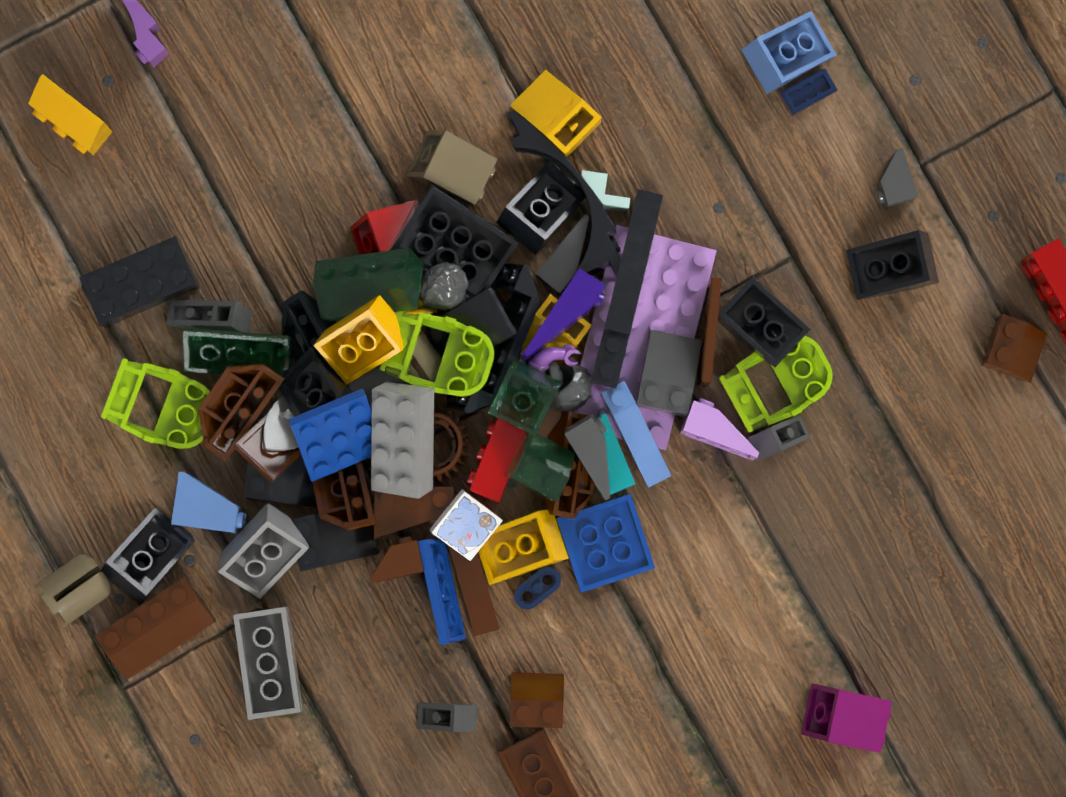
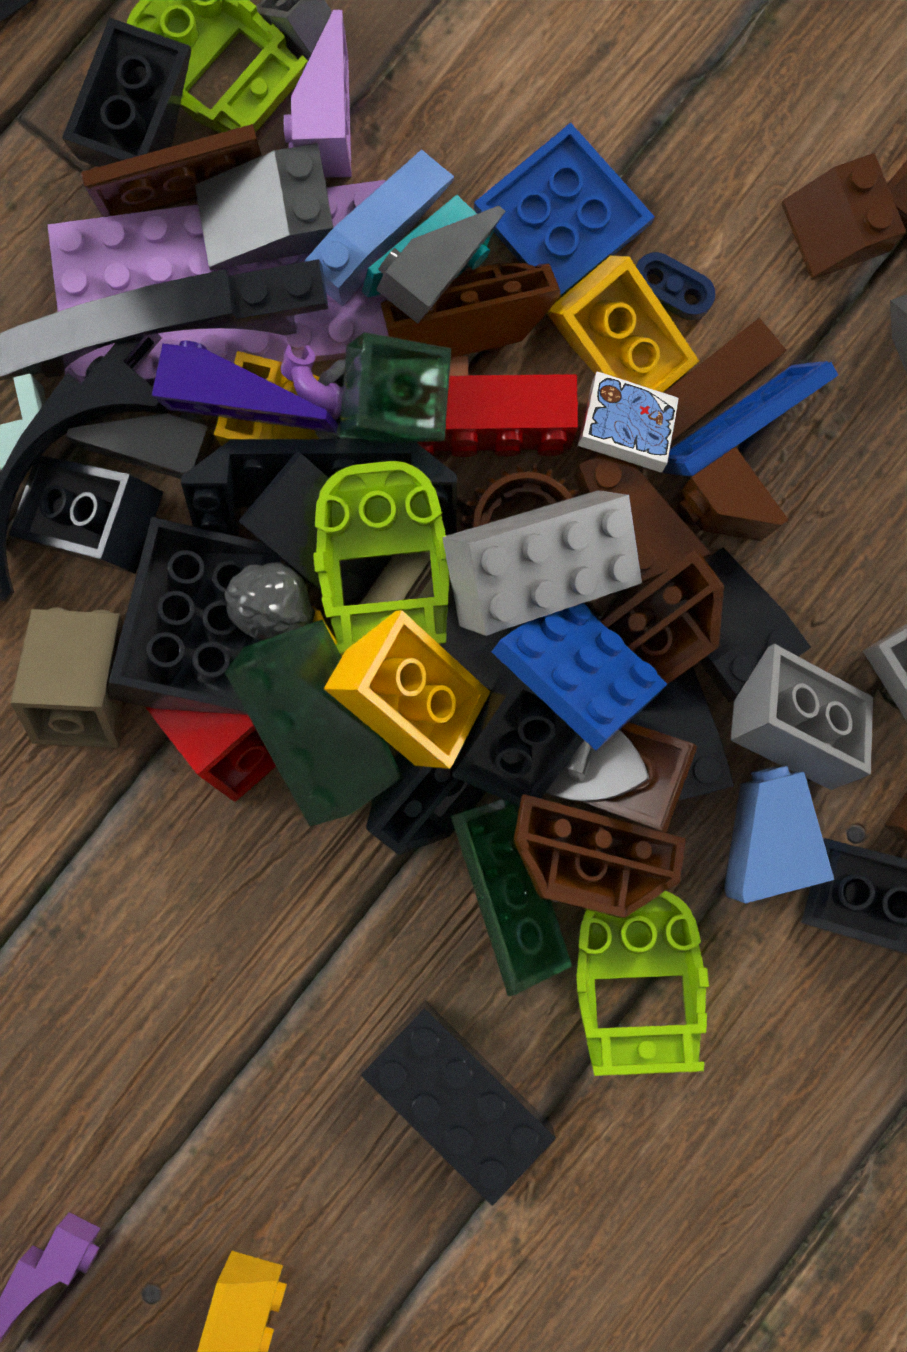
camera: 110 degrees left, 0 degrees up
(209, 315) = (467, 963): dark grey slope -> none
(541, 466) = (495, 325): clear green slope -> none
(574, 389) = (336, 330): dark grey hair -> none

